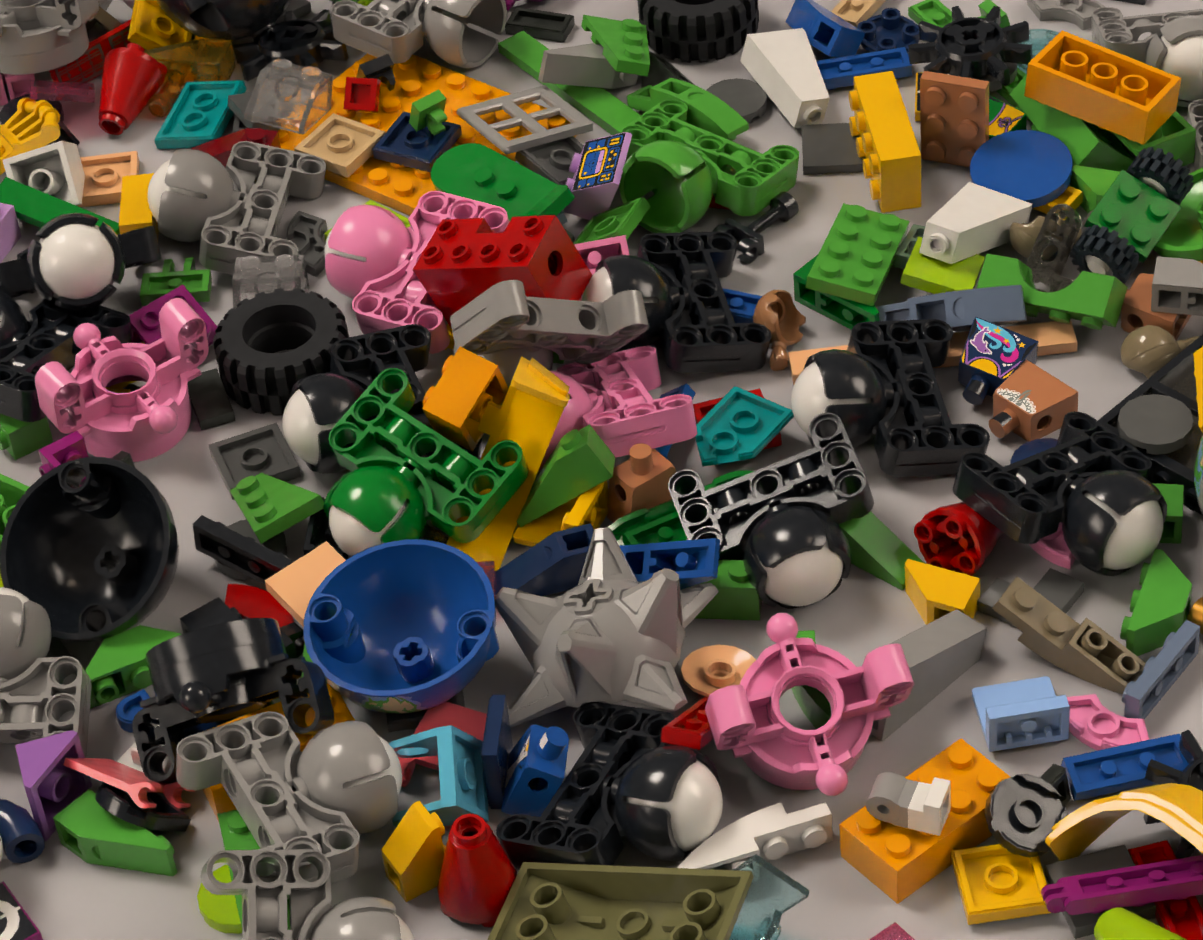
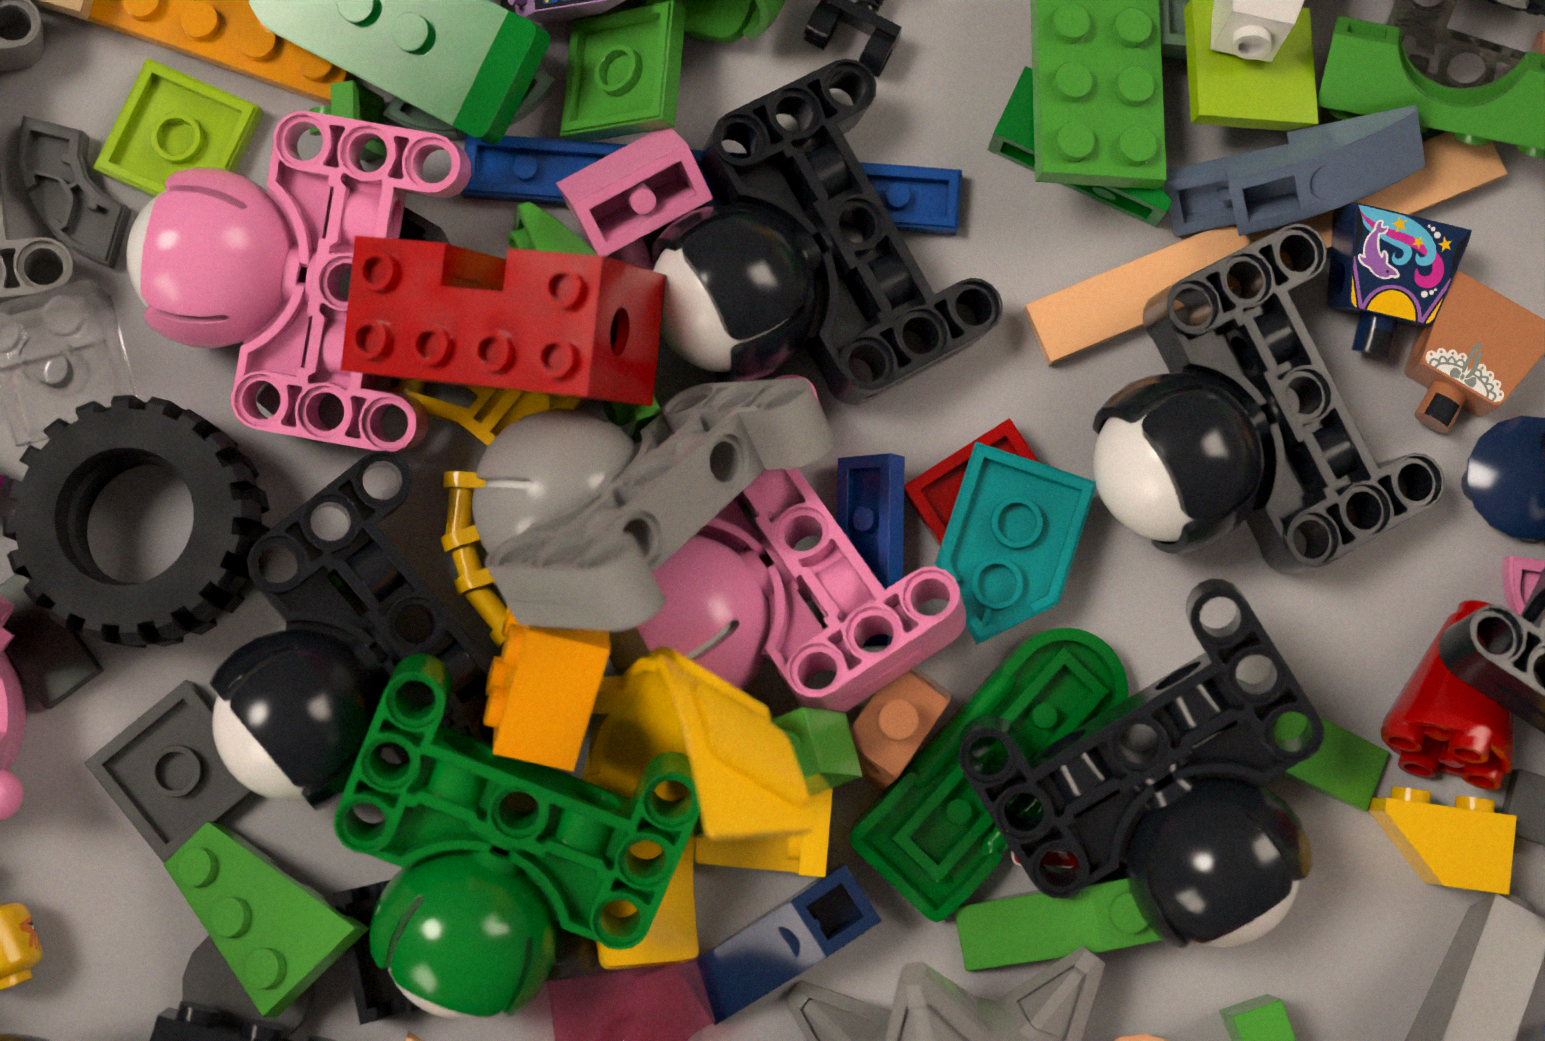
camera: 25 degrees left, 40 degrees up
(691, 559) = (1021, 950): blue slope -> none
(783, 320) = (990, 247): medium nougat hair -> none

